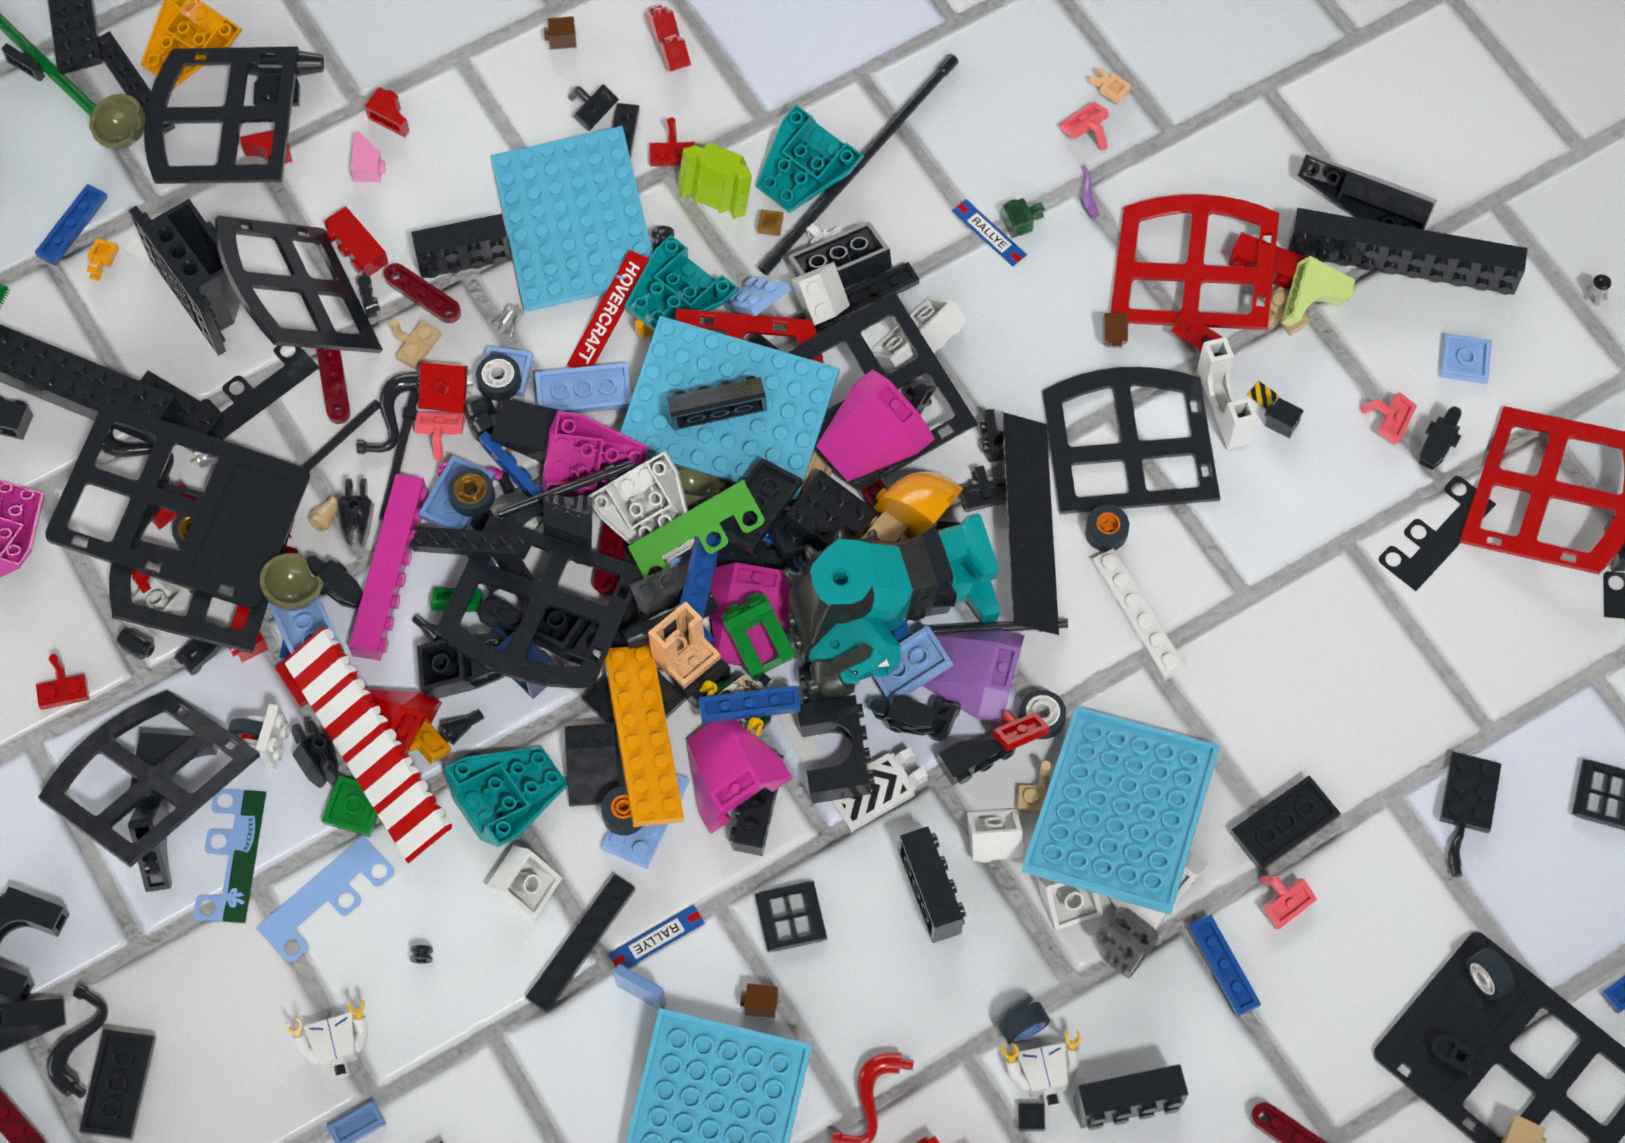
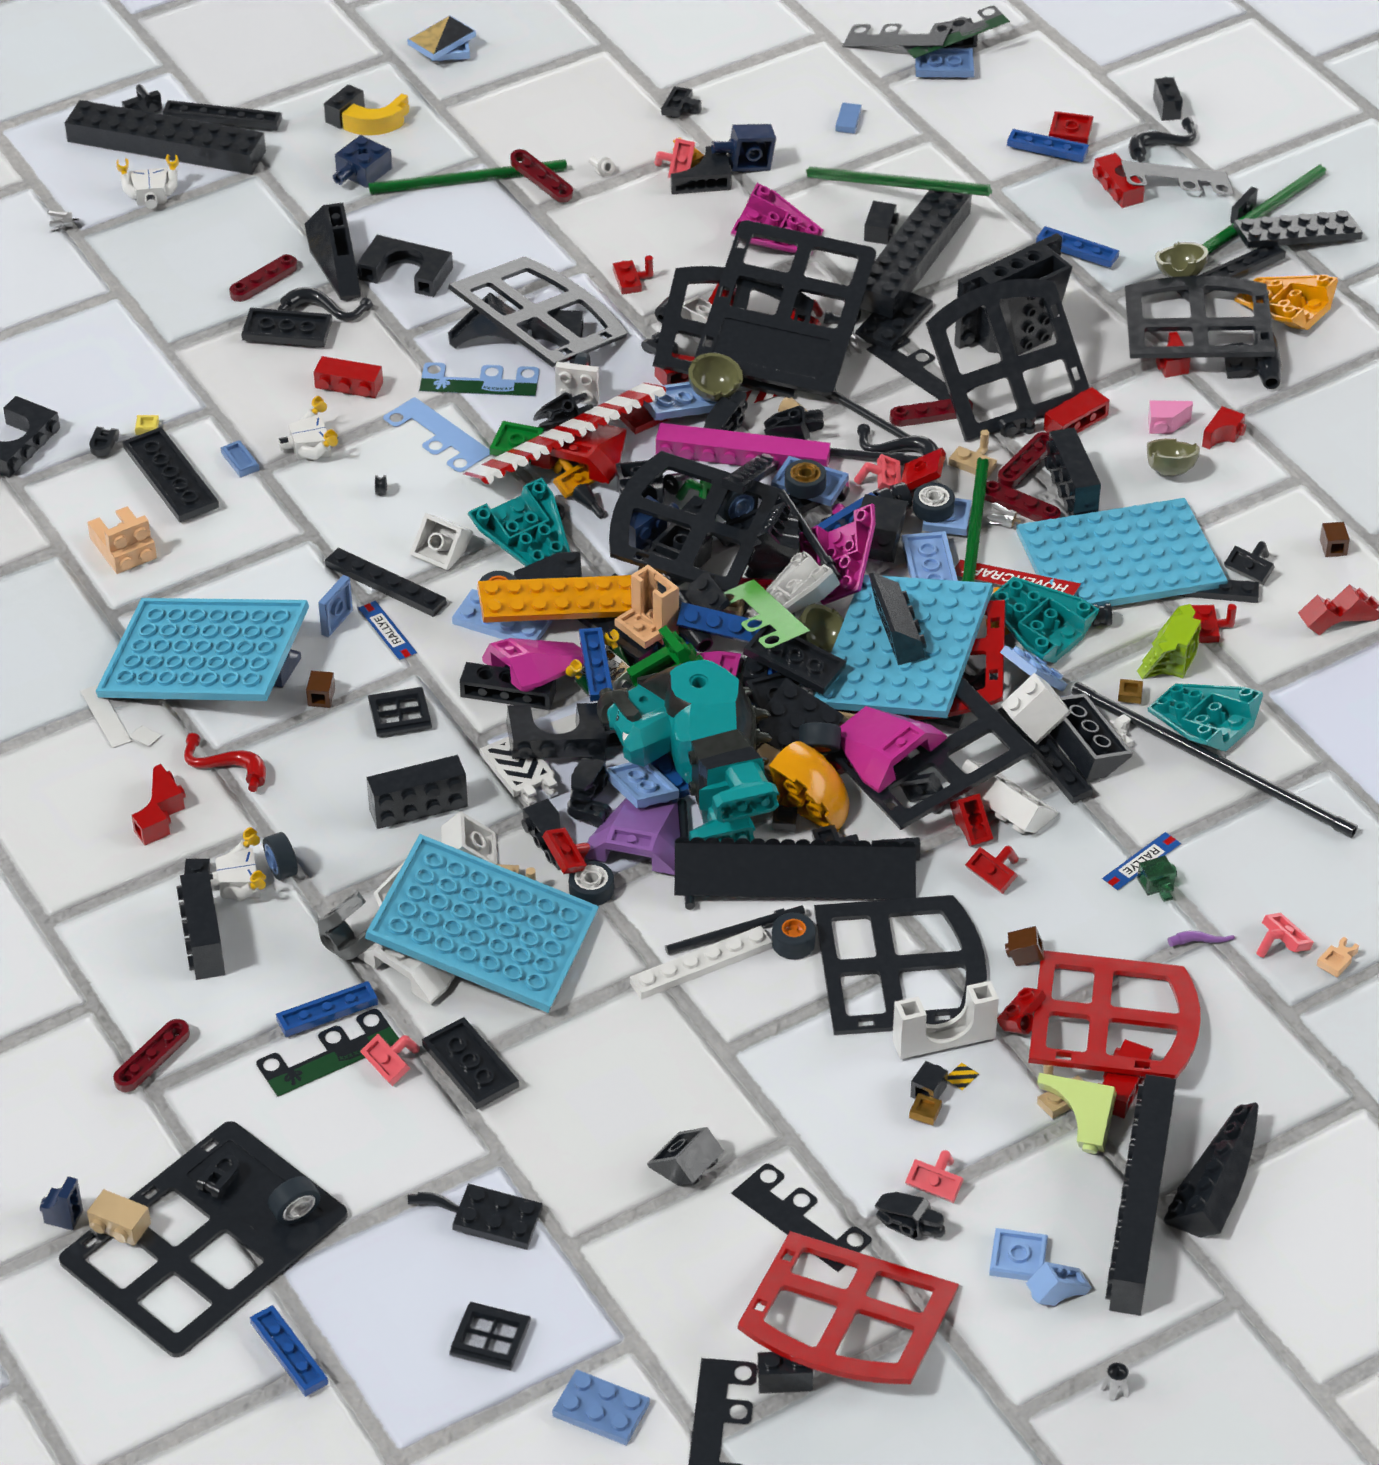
camera: 90 degrees right, 20 degrees down
(224, 1003) = (348, 377): none -> red brick
(436, 155) = (1172, 456): none -> olive cylinder
(486, 304) = (1020, 502): none -> dark red plate
(537, 346) = (975, 520): none -> green axle
(865, 488) = (821, 736): none -> black wheel
(956, 364) = (972, 819): none -> red arch
(1014, 352) = (992, 869): none -> red plate
(1077, 542) = (730, 931): none -> black bar
(1276, 952) = (336, 1057): none -> piece
(1312, 423) = (925, 1109): none -> pearl gold plate
(1387, 626) = (687, 1156): none -> slope
(1504, 326) = (1057, 1282): none -> light blue arch

